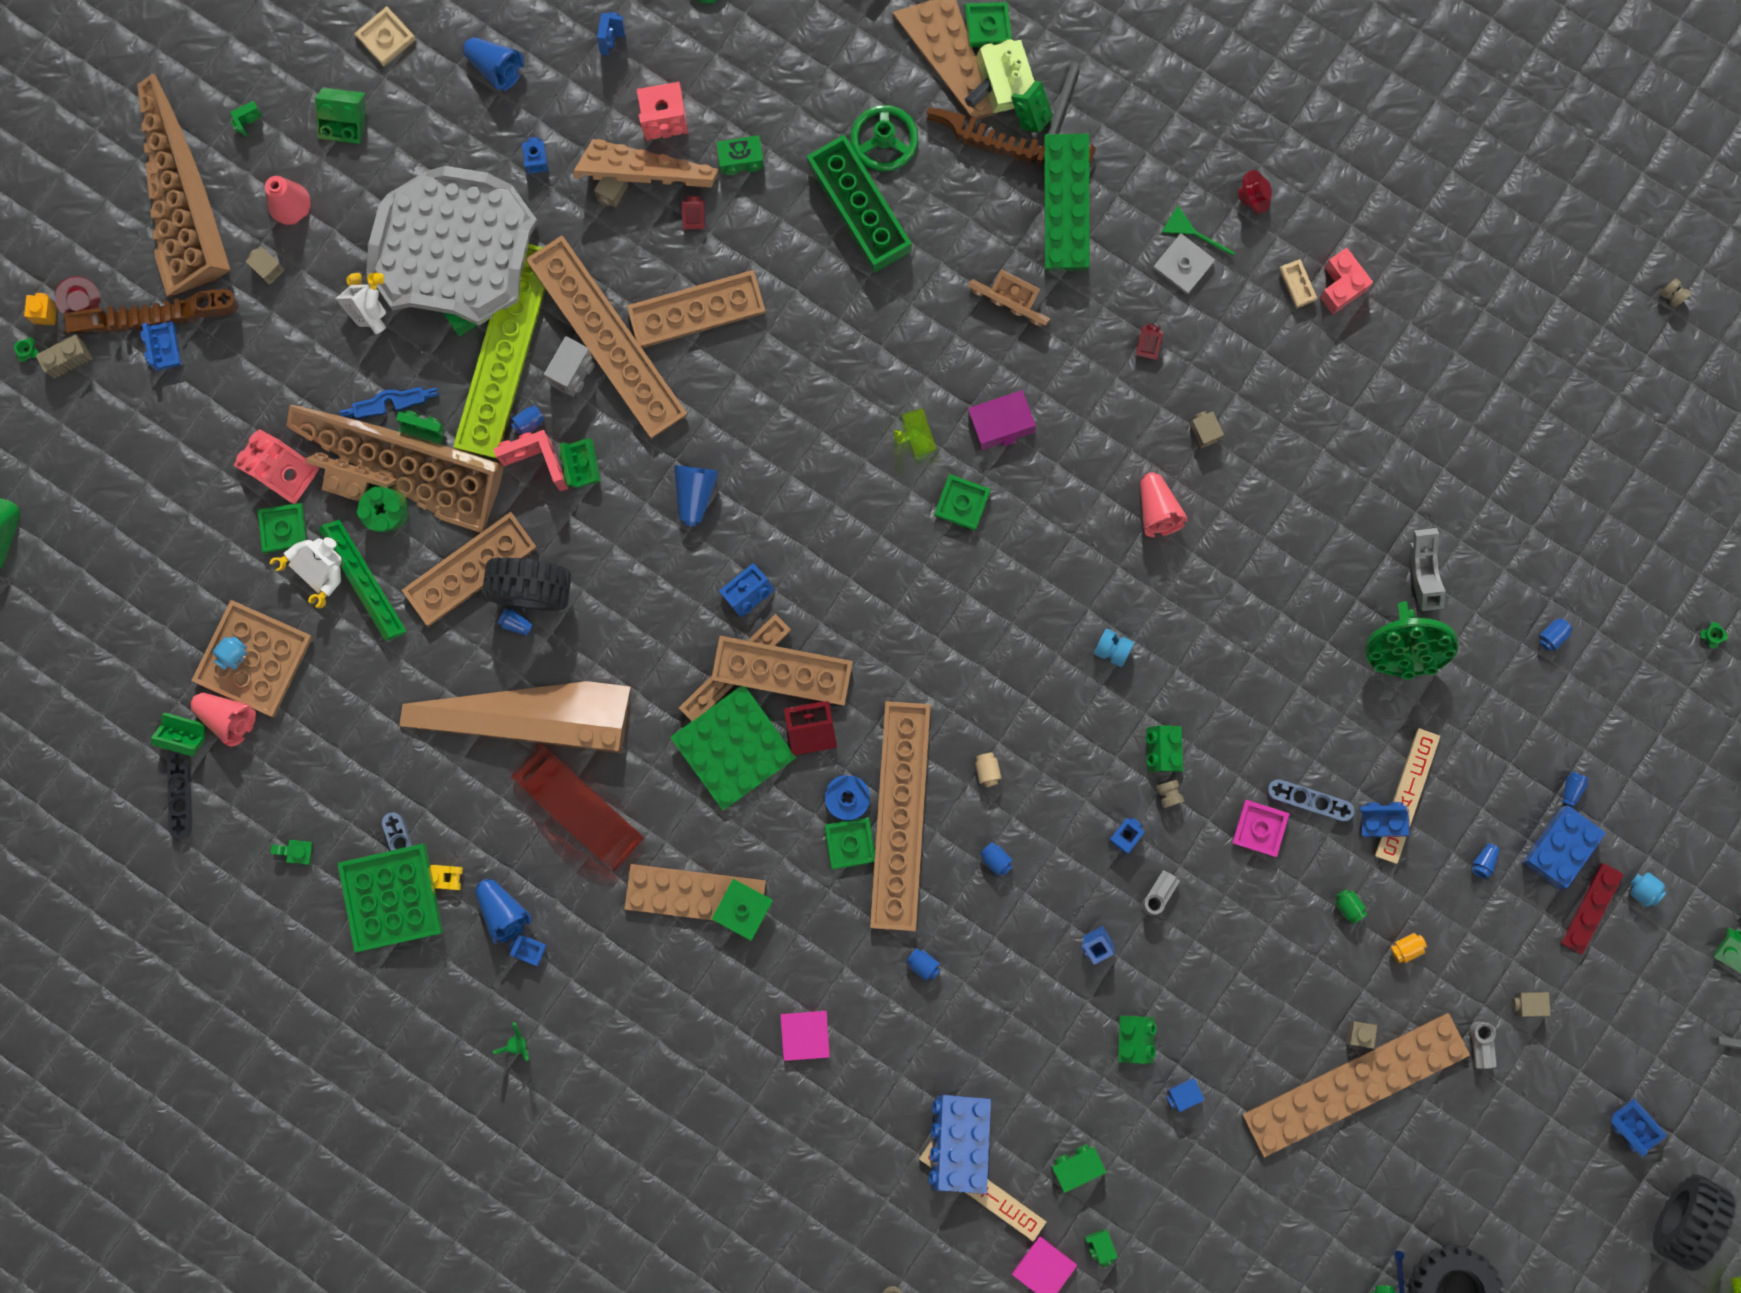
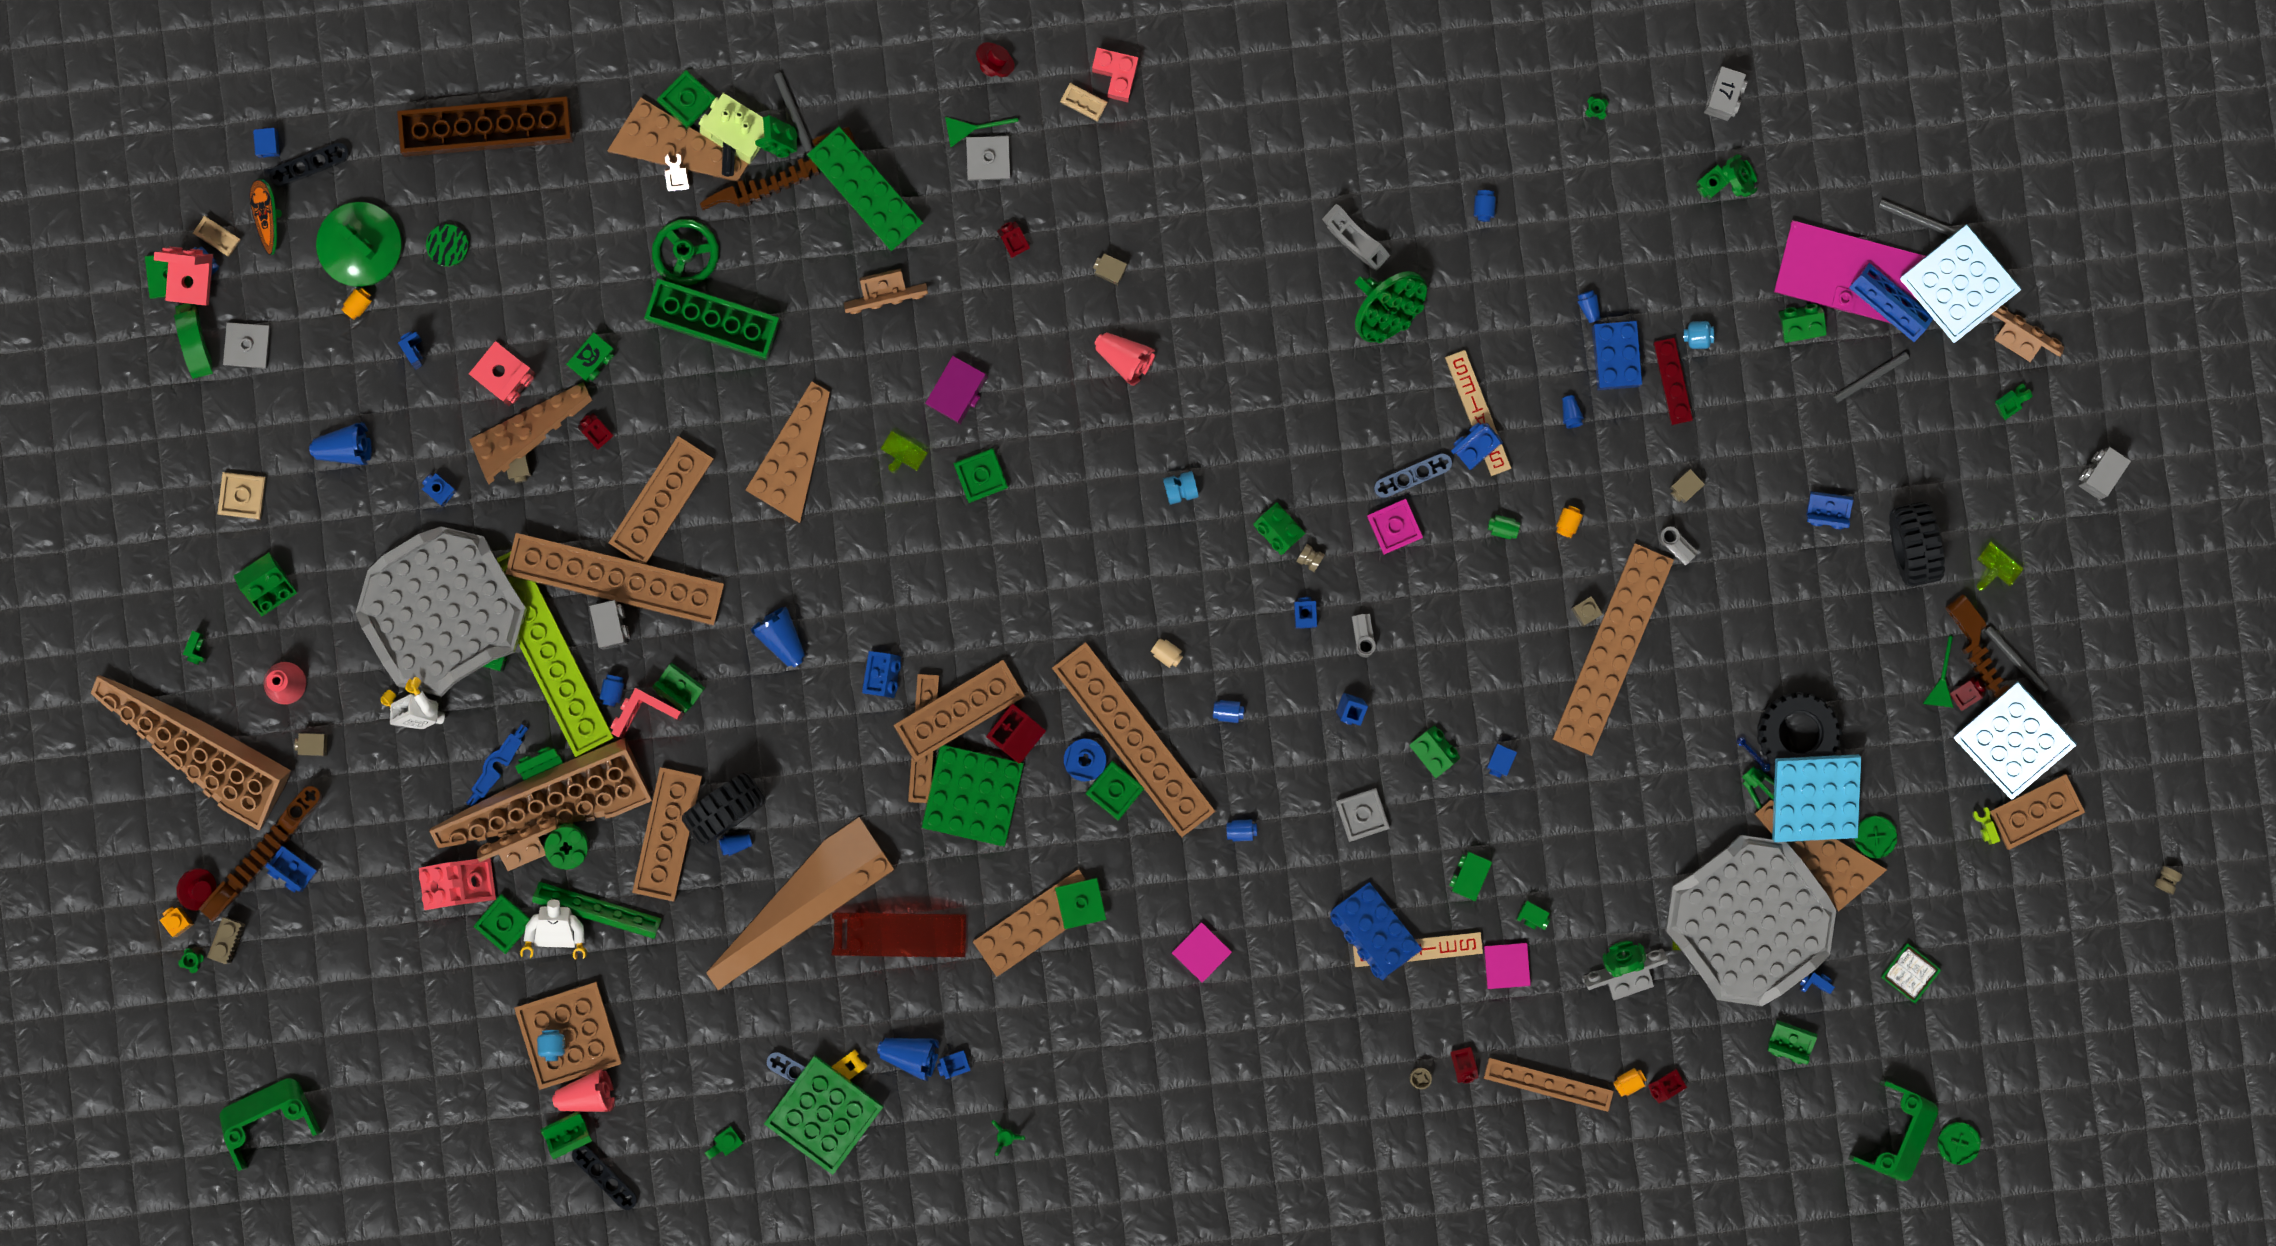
camera: 50 degrees left, 5 degrees up
(822, 365) = (789, 464): none -> medium nougat wing
(928, 74) = (676, 176): none -> plate
(1032, 1039) = (1362, 815): none -> light grey plate

